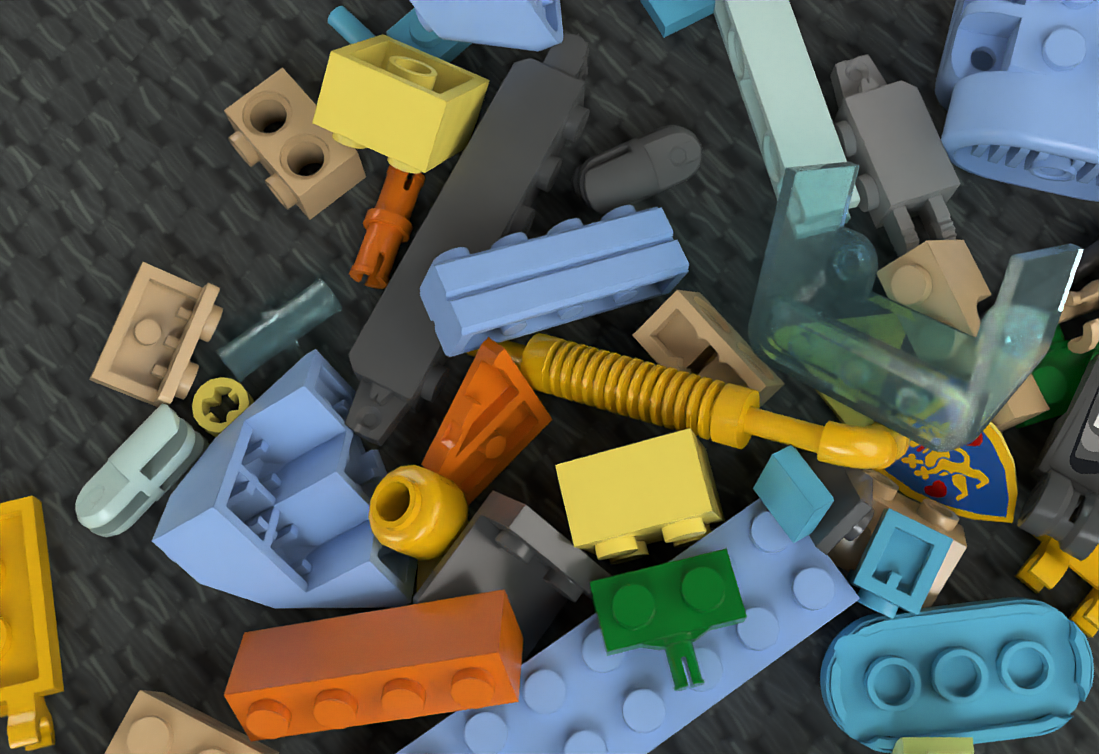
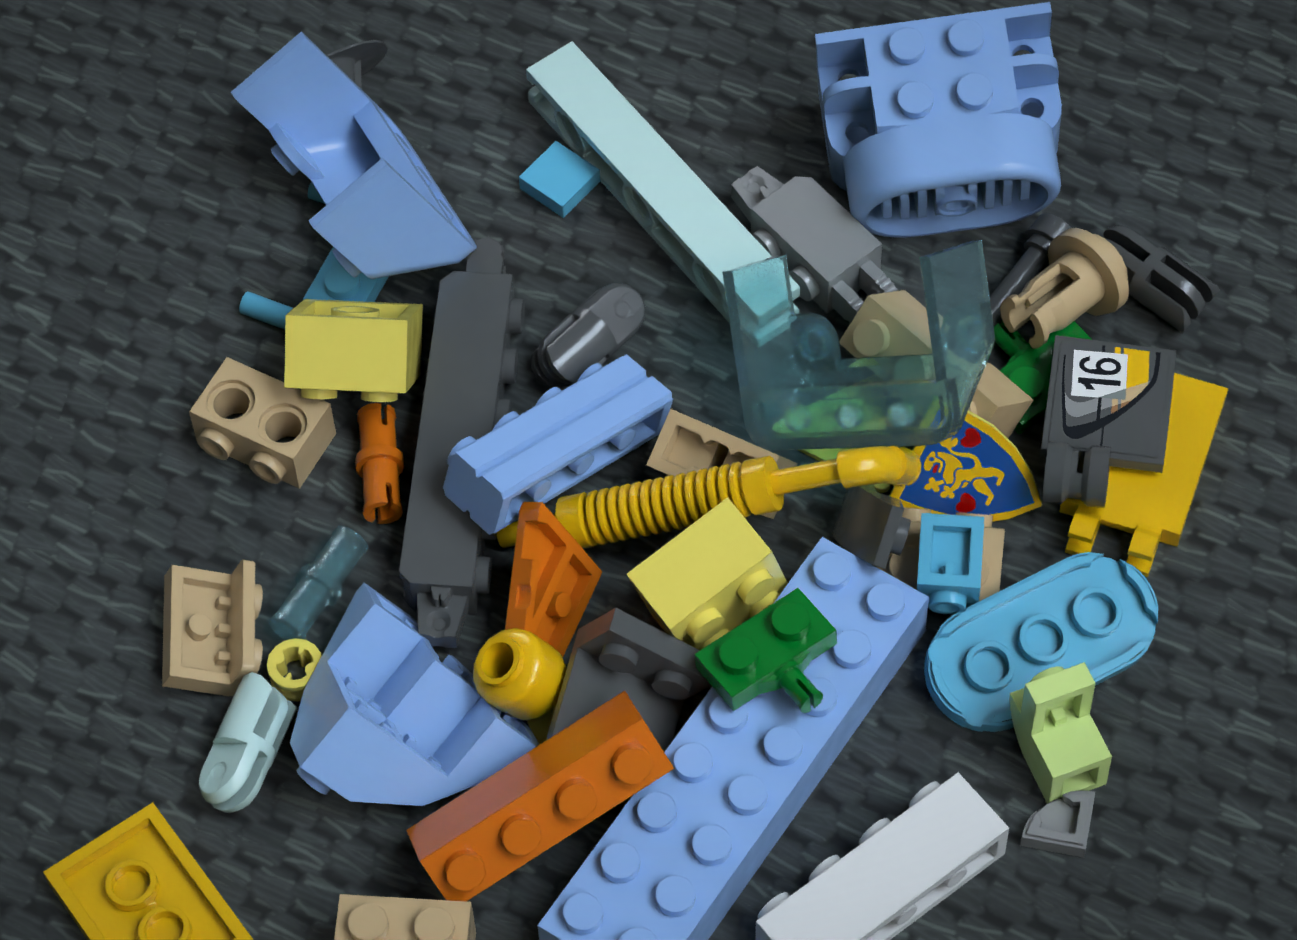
camera: 20 degrees left, 15 degrees down
(793, 493) = (835, 526): medium azure tile -> none

